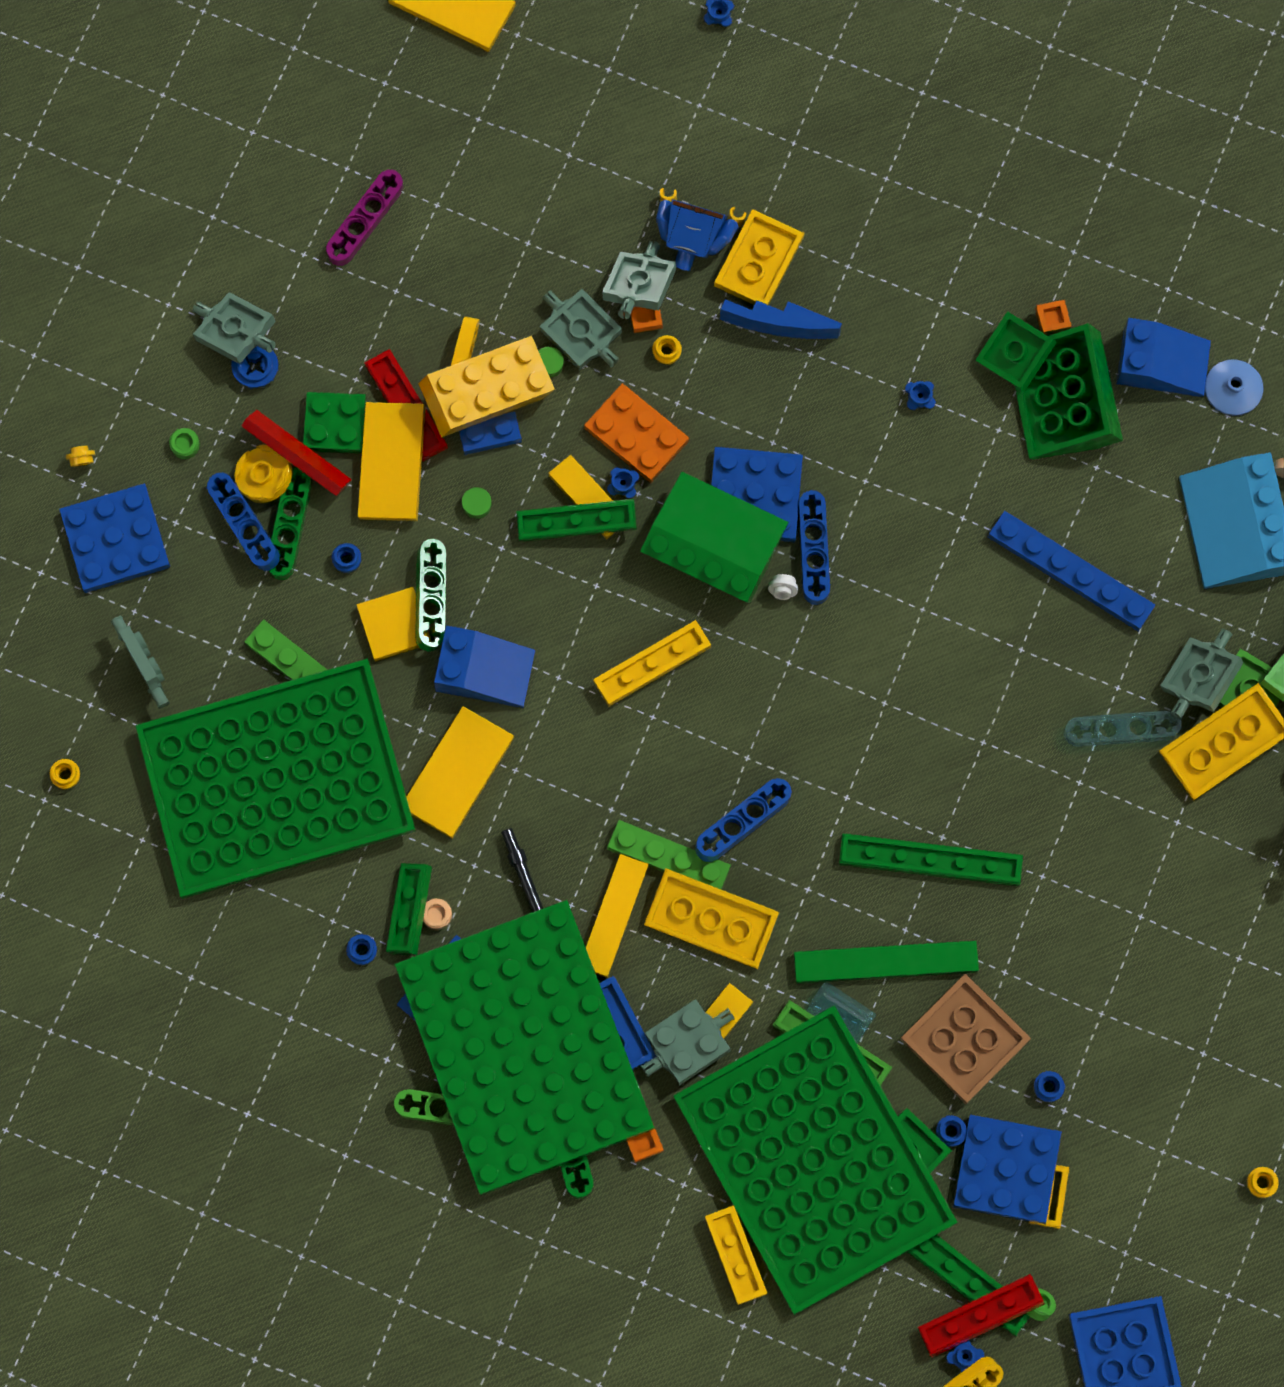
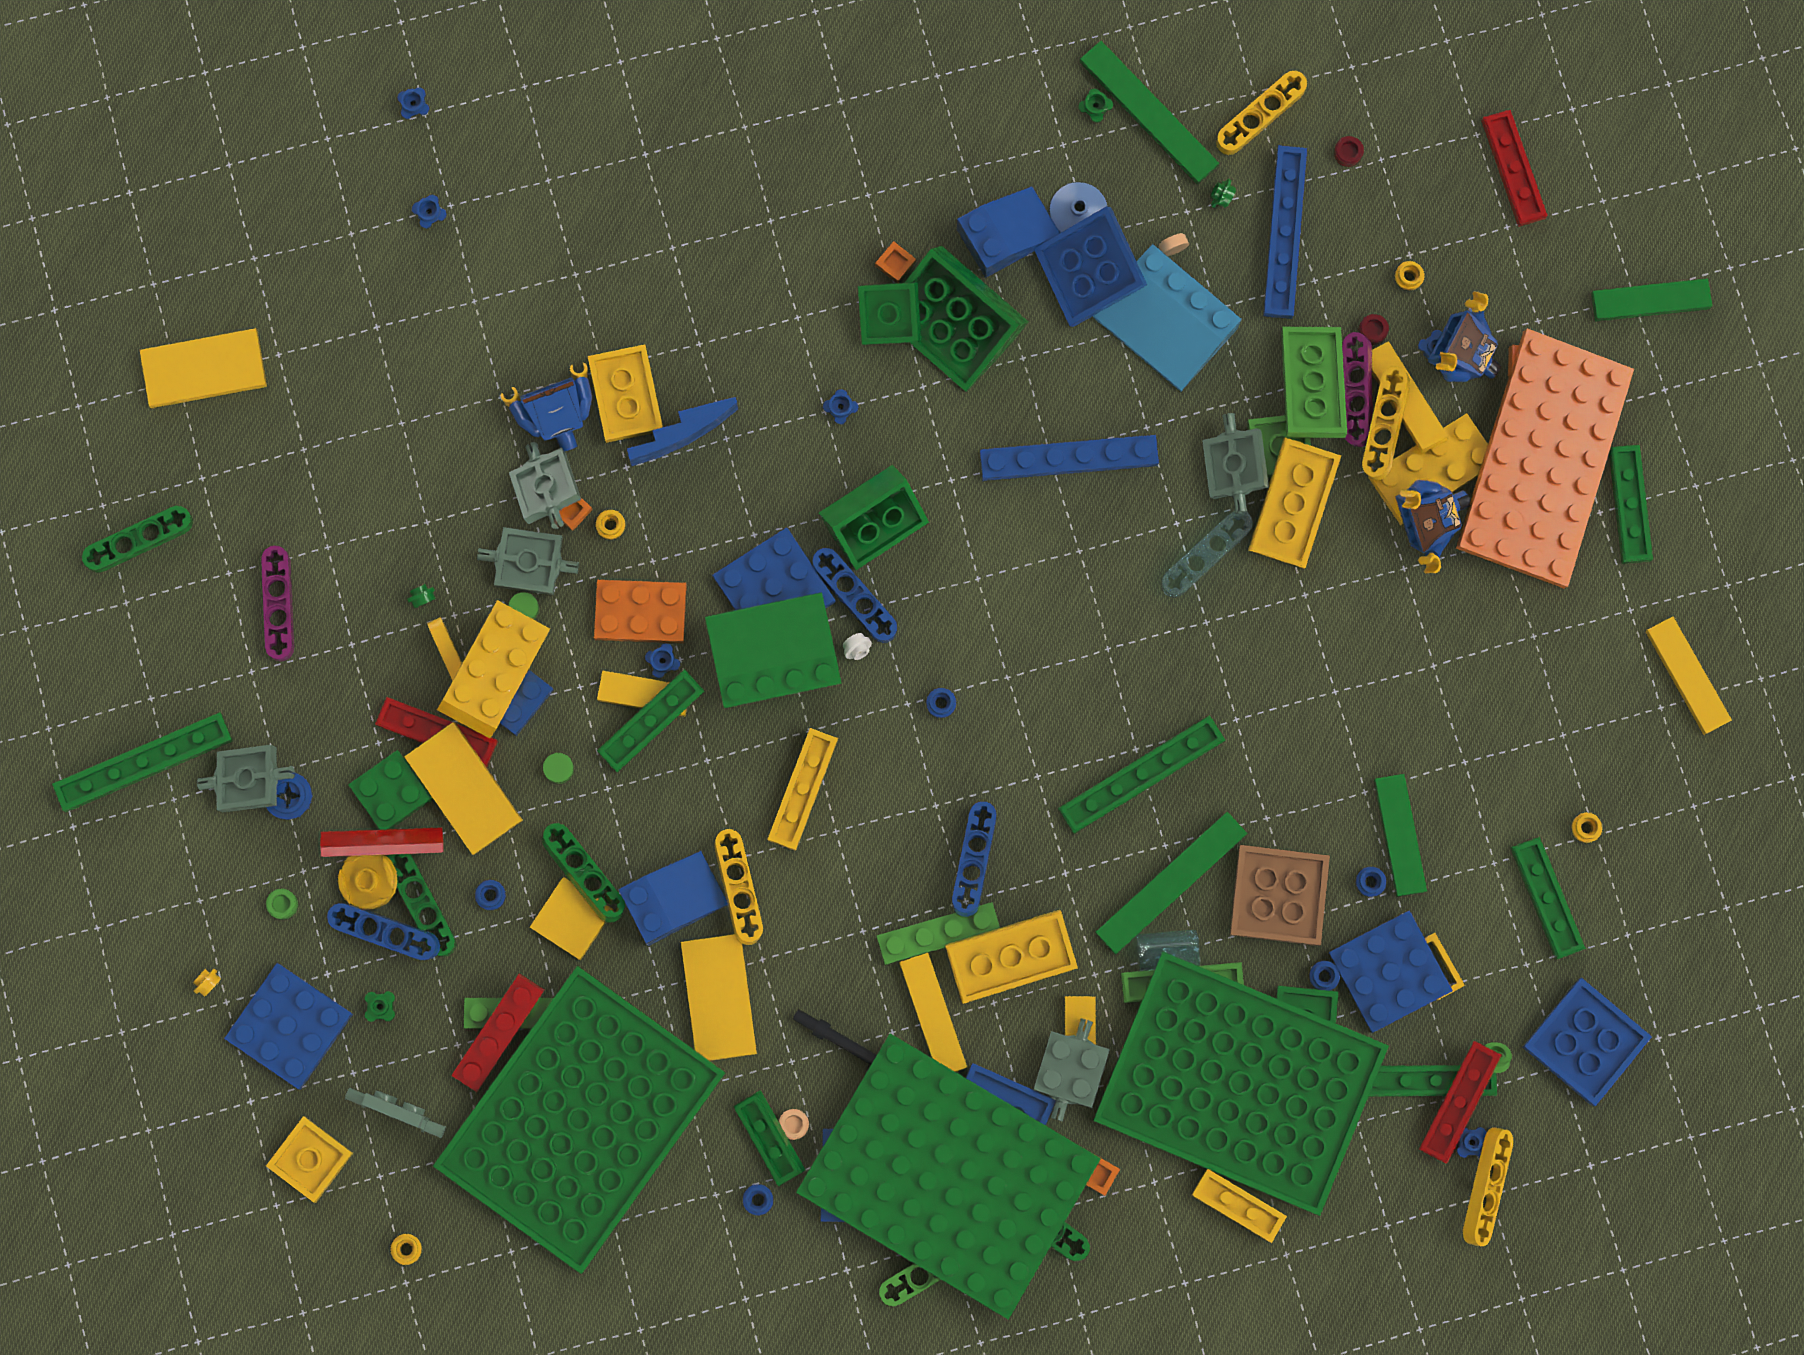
camera: 40 degrees left, 5 degrees up
(48, 648) = (309, 1159): none -> yellow plate
(167, 258) = (142, 762): none -> green plate
(195, 585) = (386, 1012): none -> green plate
(266, 663) = (497, 1032): none -> red plate
(301, 86) = (139, 543): none -> green beam
(477, 293) = (421, 595): none -> green plate
(541, 698) = (740, 886): none -> yellow beam
(815, 672) = (944, 694): none -> blue plate
(877, 498) = (874, 517): none -> green slope
(1102, 1069) = (1400, 835): none -> green tile
(1185, 1213) = (1547, 898): none -> green tile
(1206, 433) = (1090, 266): none -> blue plate

